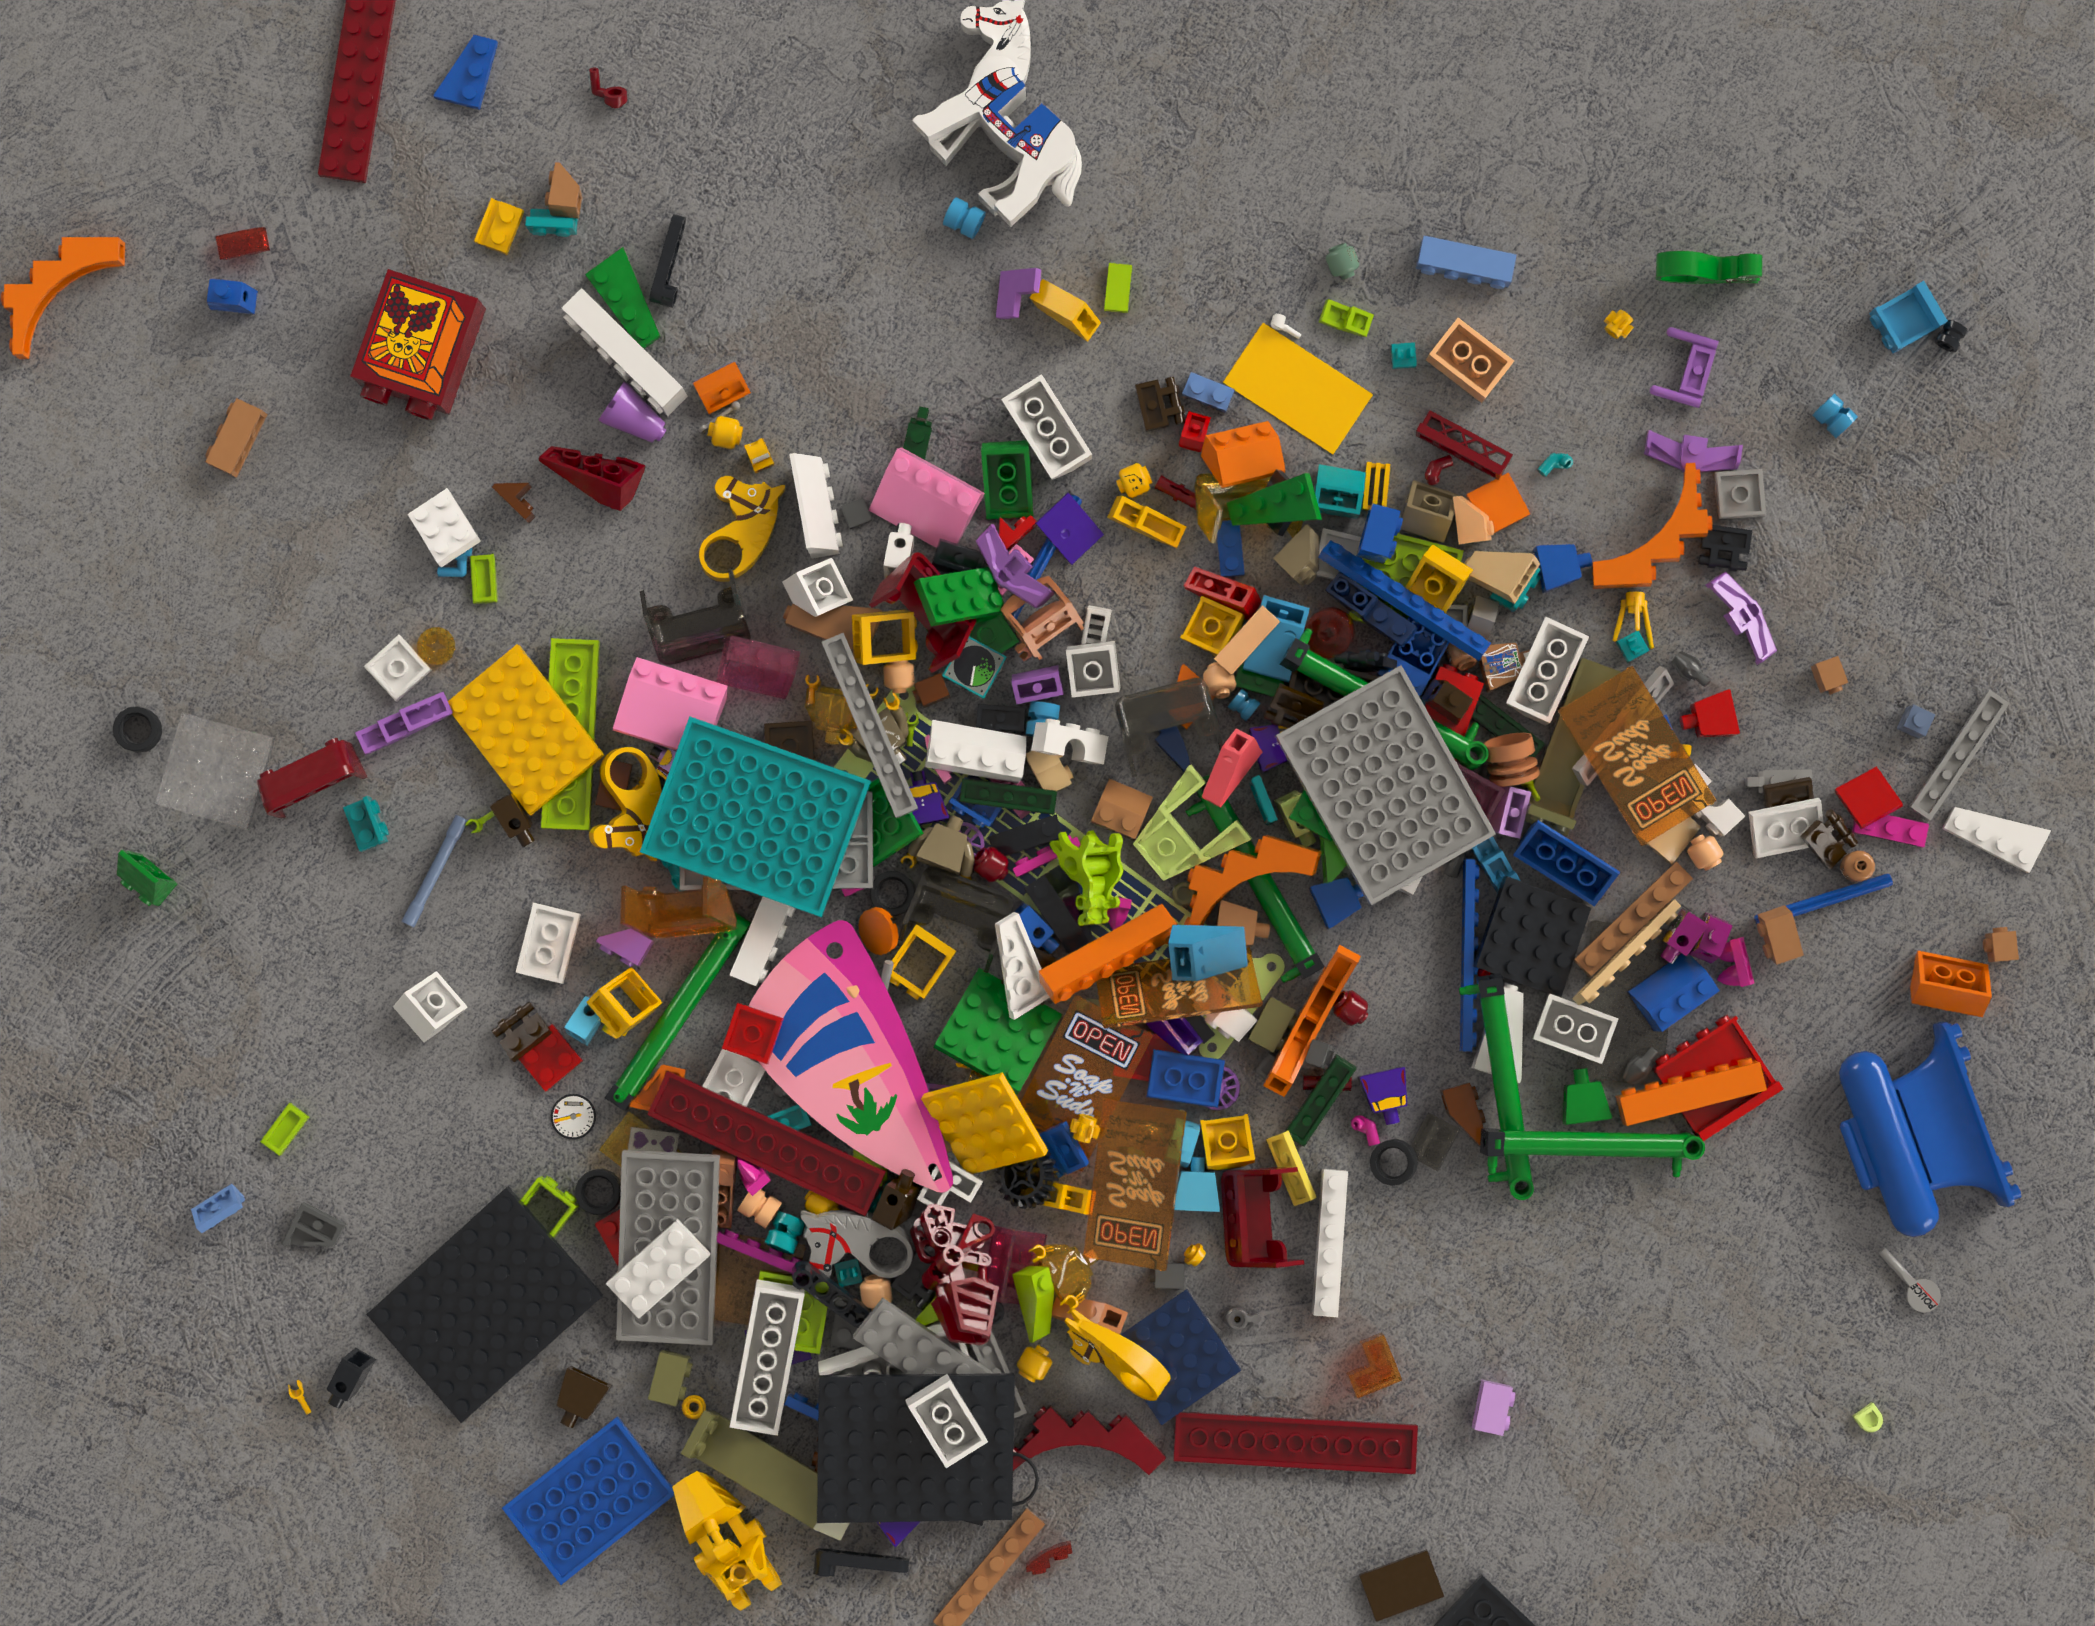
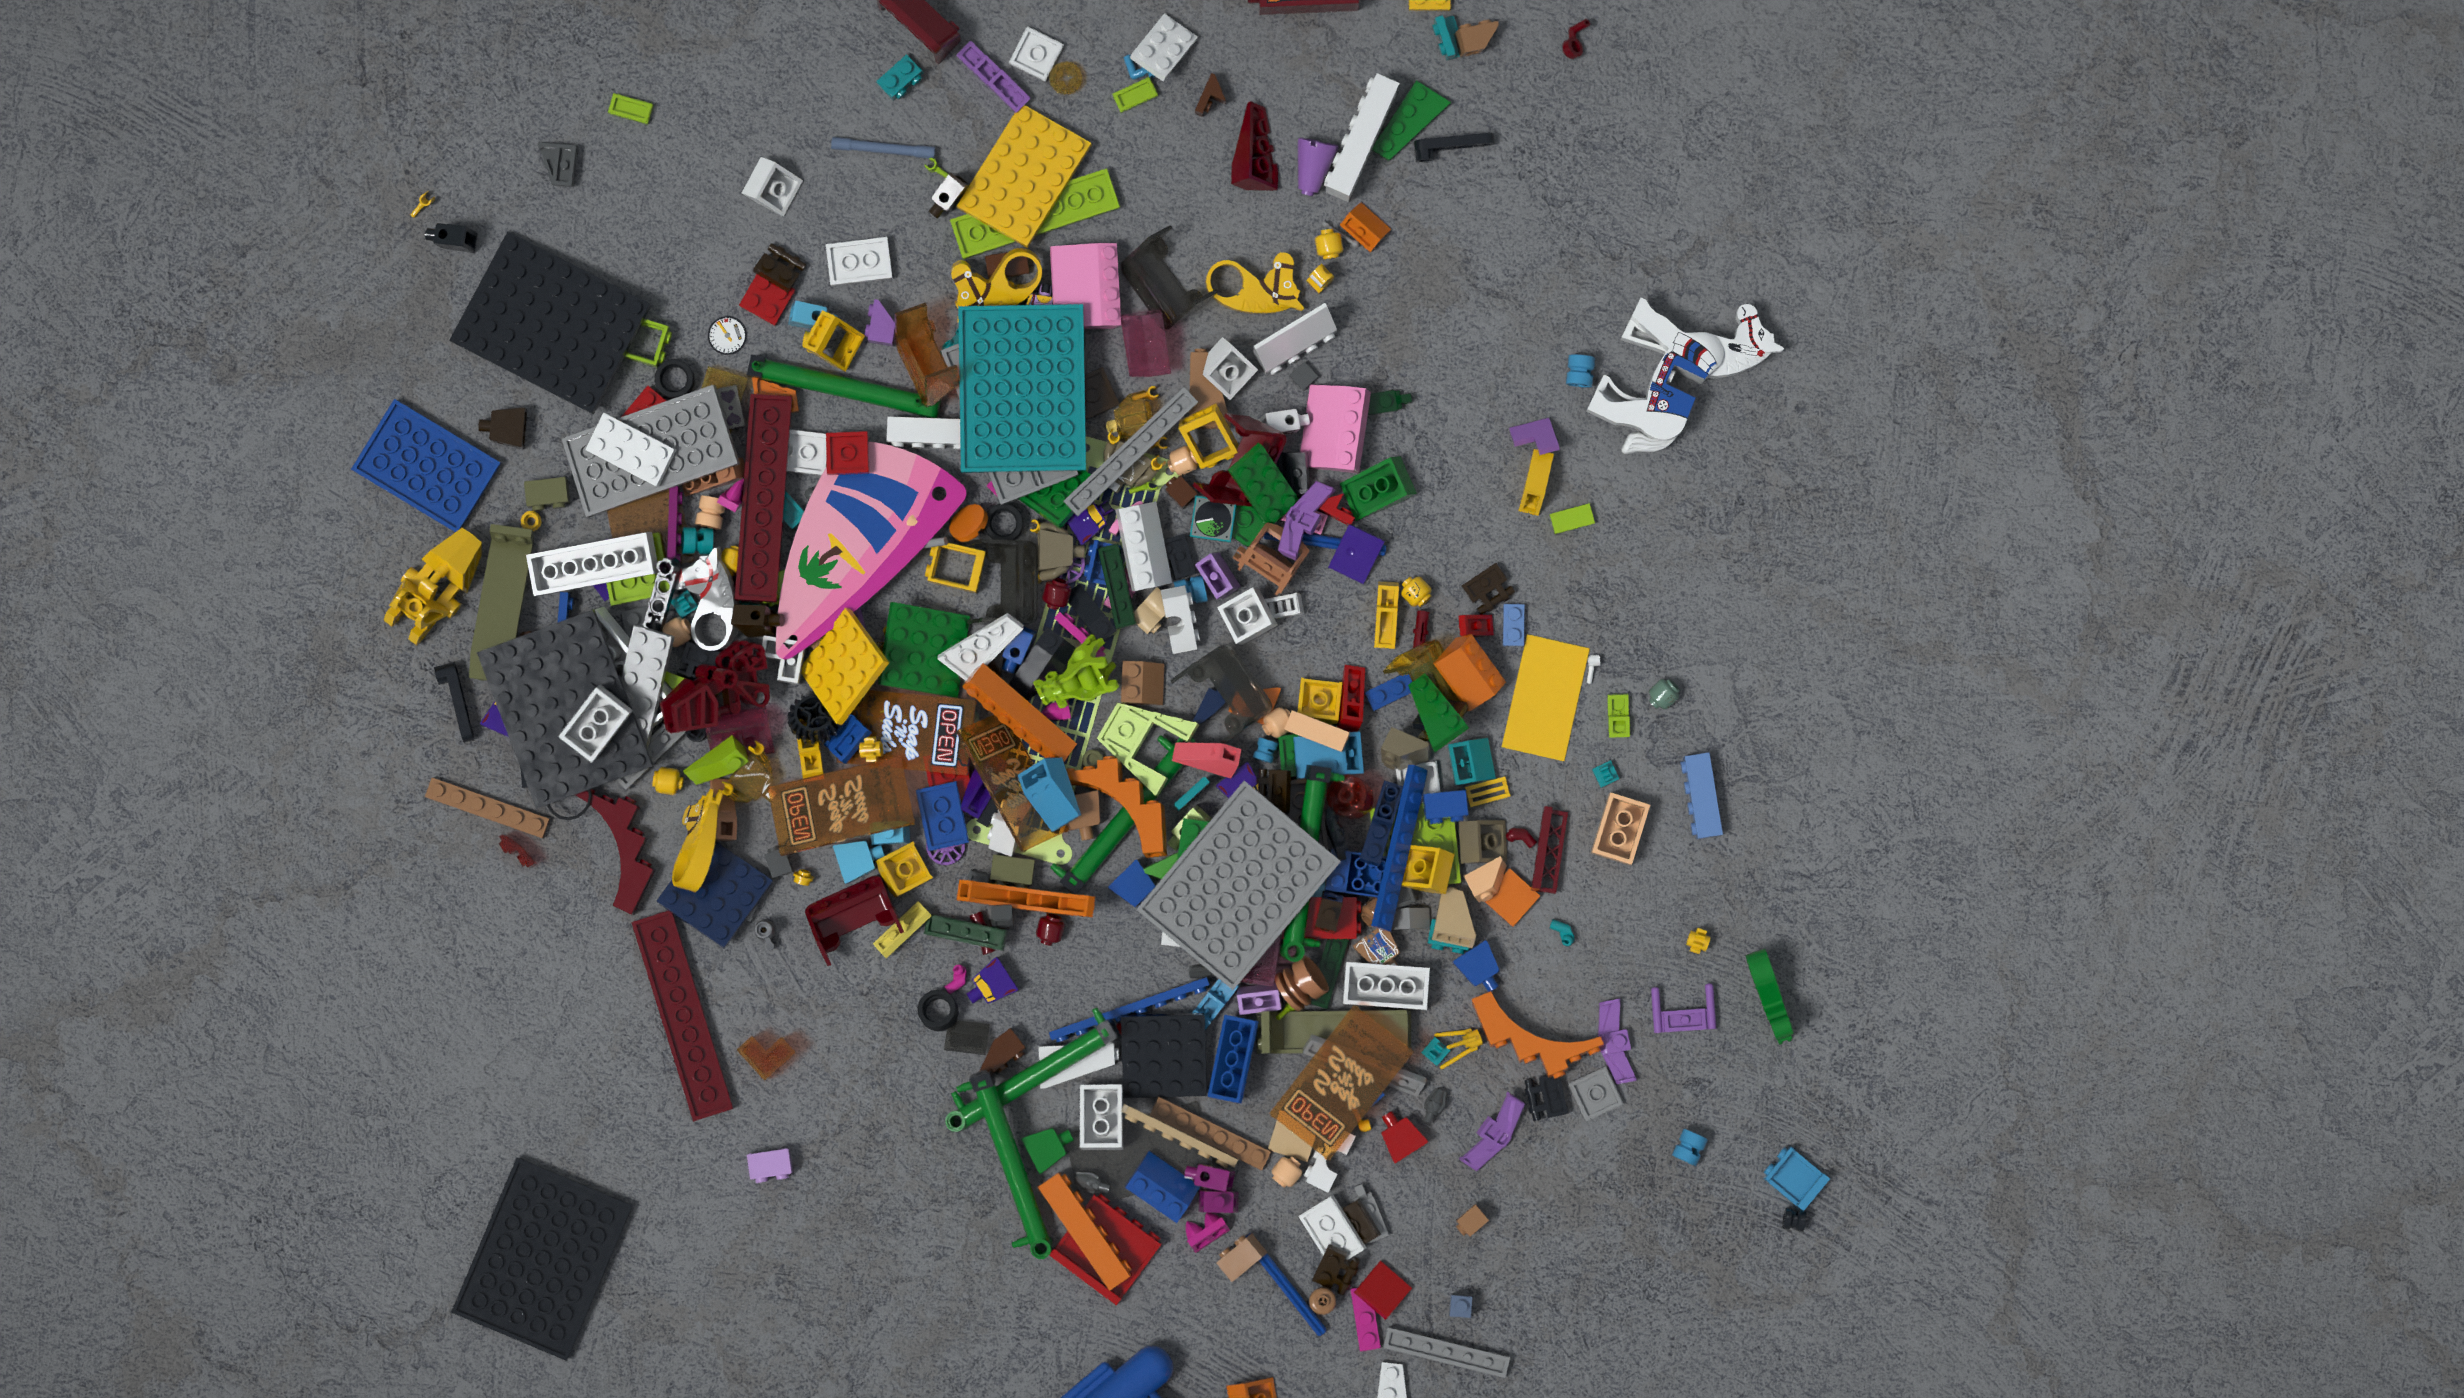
camera: 65 degrees right, 0 degrees up
(217, 1208) = (547, 80): medium blue bracket -> none
(1047, 428) = (1431, 503): white slope -> none
(1329, 1242) = (853, 982): white brick -> none
(1401, 1585) = (599, 1144): dark brown tile -> none

